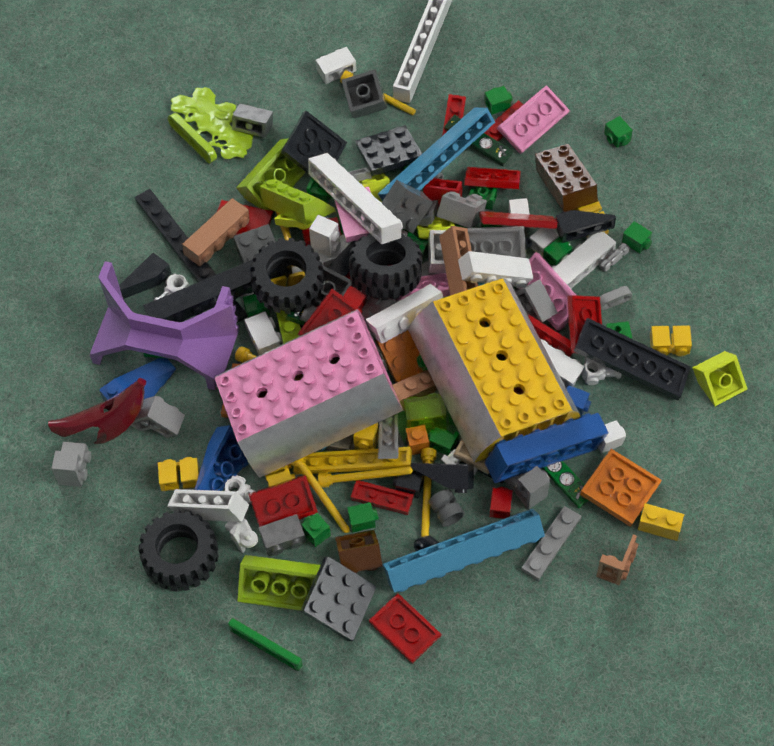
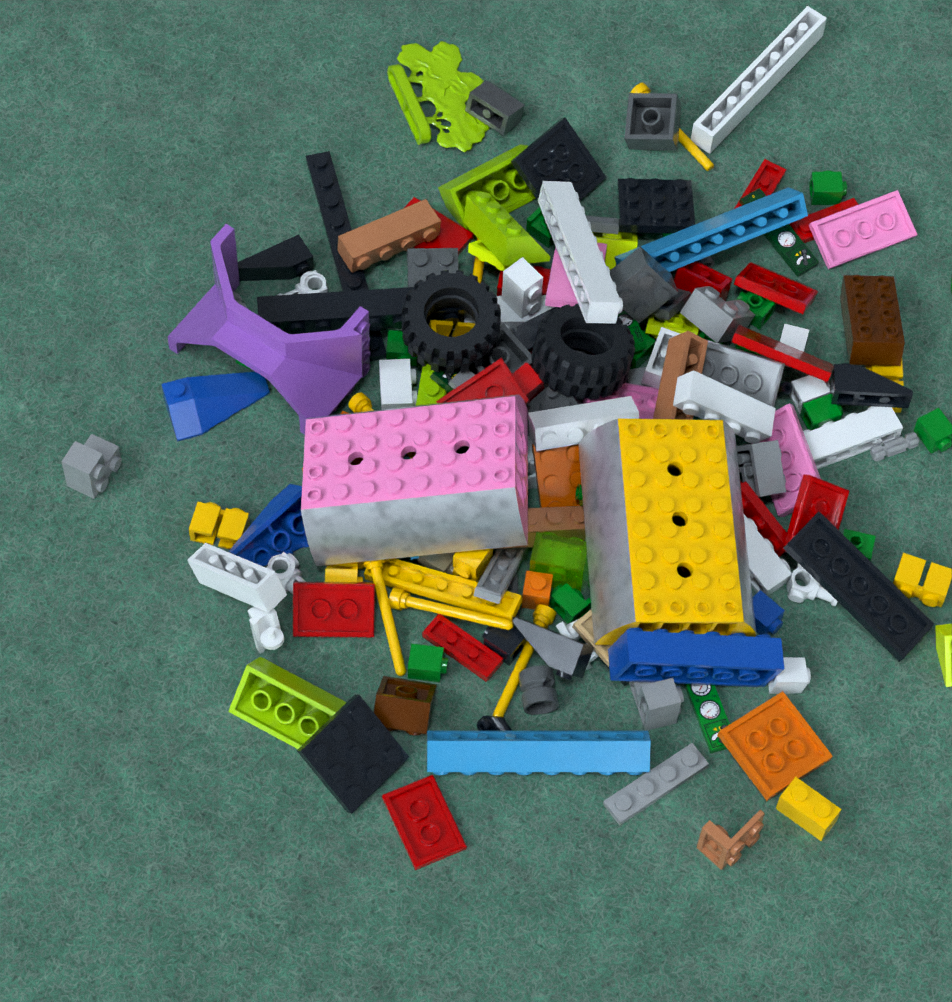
camera: 15 degrees right, 0 degrees up
(121, 413) = (176, 424): dark red piece -> none
(159, 417) = (220, 442): light grey brick -> none
(185, 573) = (185, 651): black tyre -> none
(265, 644) = (240, 777): green tile -> none
(282, 535) = (316, 649): flat silver brick -> none
(316, 529) = (361, 657): green brick -> none
(334, 64) = (629, 70): white brick -> none
(501, 502) = (611, 709): red brick -> none
(615, 297) = (871, 499): light grey beam -> none

